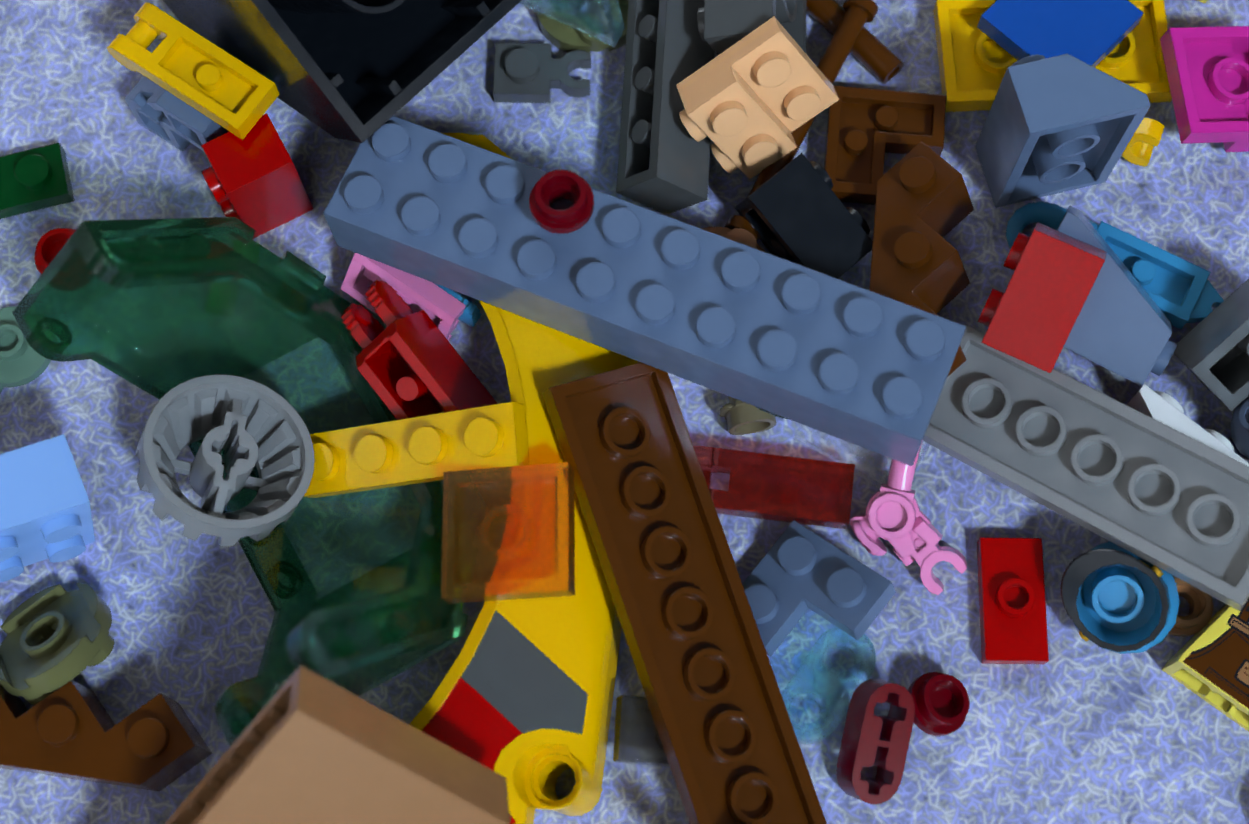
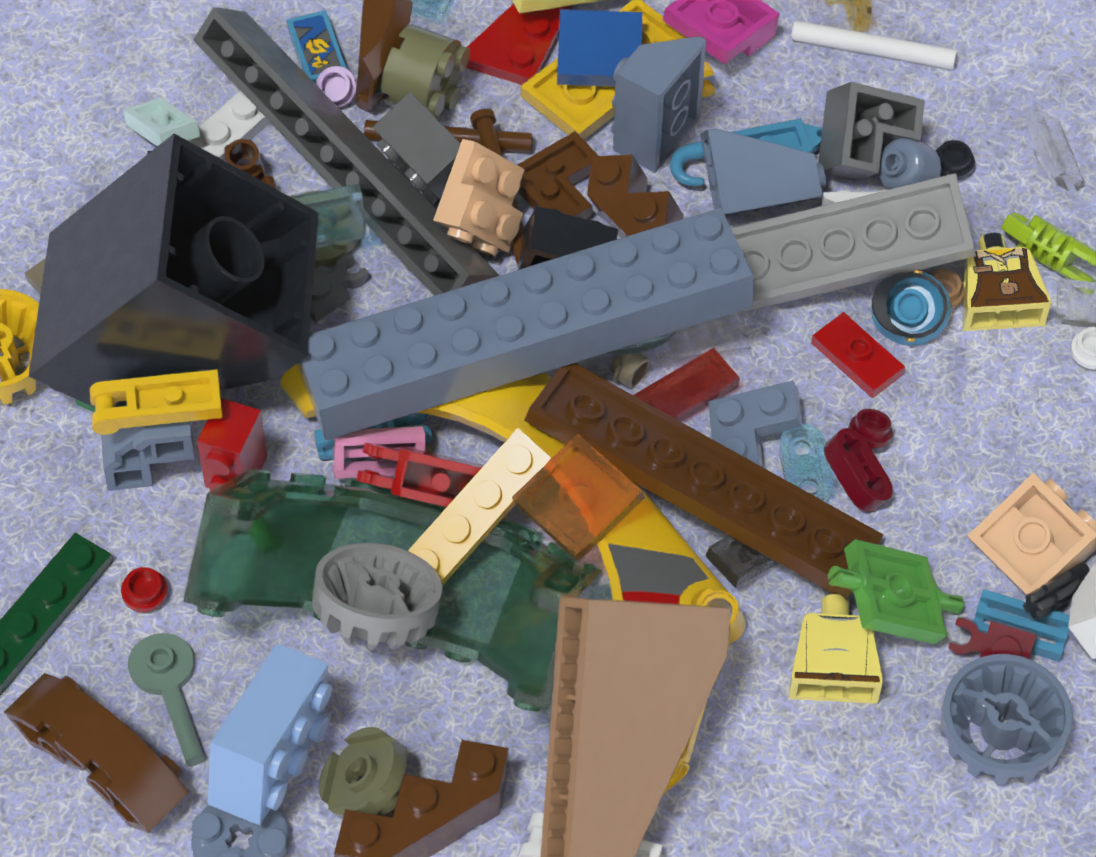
camera: 45 degrees left, 15 degrees down
(557, 186) = (454, 289): dark red plate -> none
(898, 519) = (761, 357): bright pink piece -> none
(1043, 296) = (734, 179): red brick -> none

